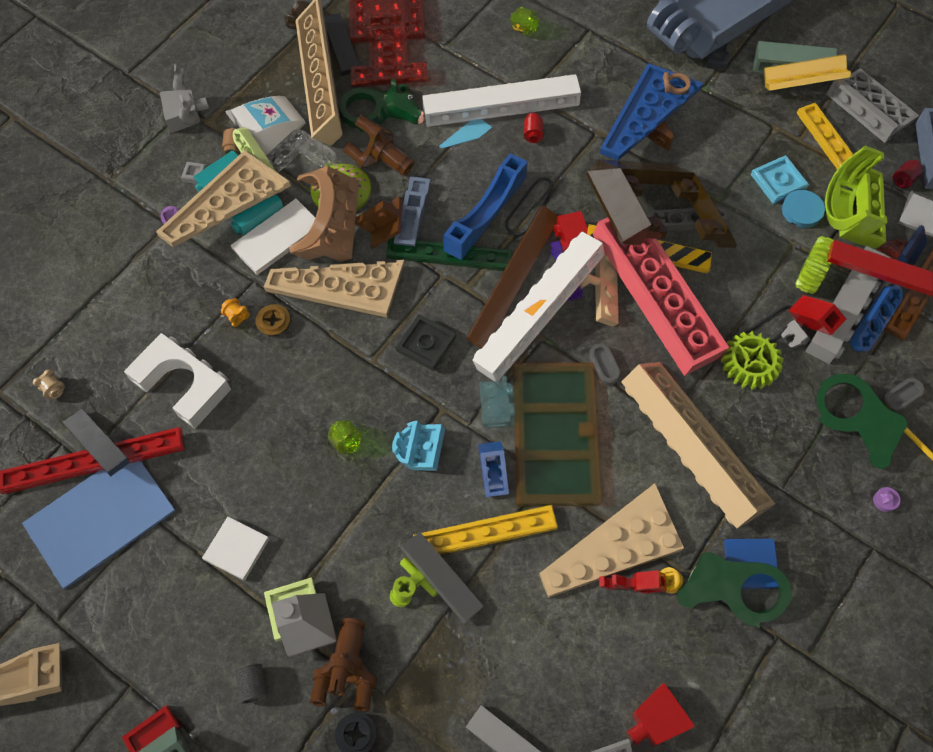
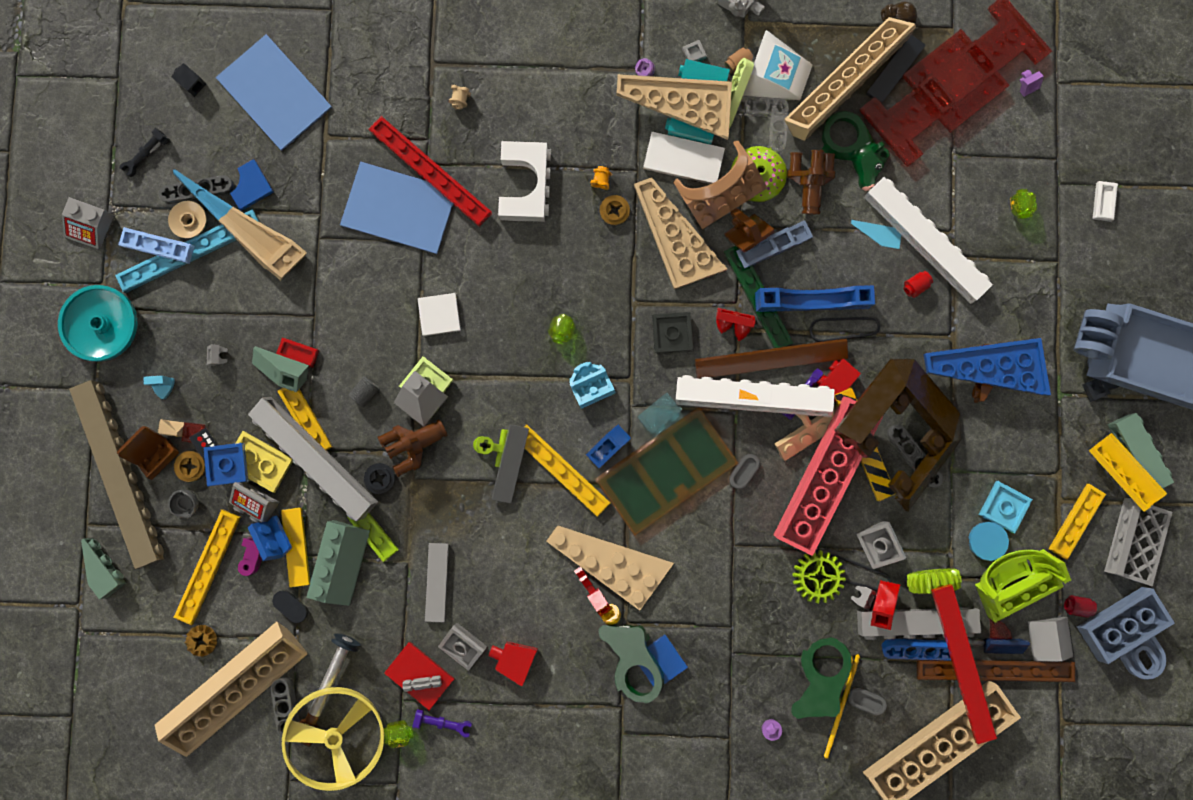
camera: 55 degrees right, 20 degrees up
(96, 442) = (441, 164): tile -> none
(464, 279) = (742, 321): none -> red tile
(669, 88) = (1024, 371): medium nougat piece -> none
(697, 444) = (725, 574): tan slope -> none
(754, 289) = (881, 545): none -> light grey slope

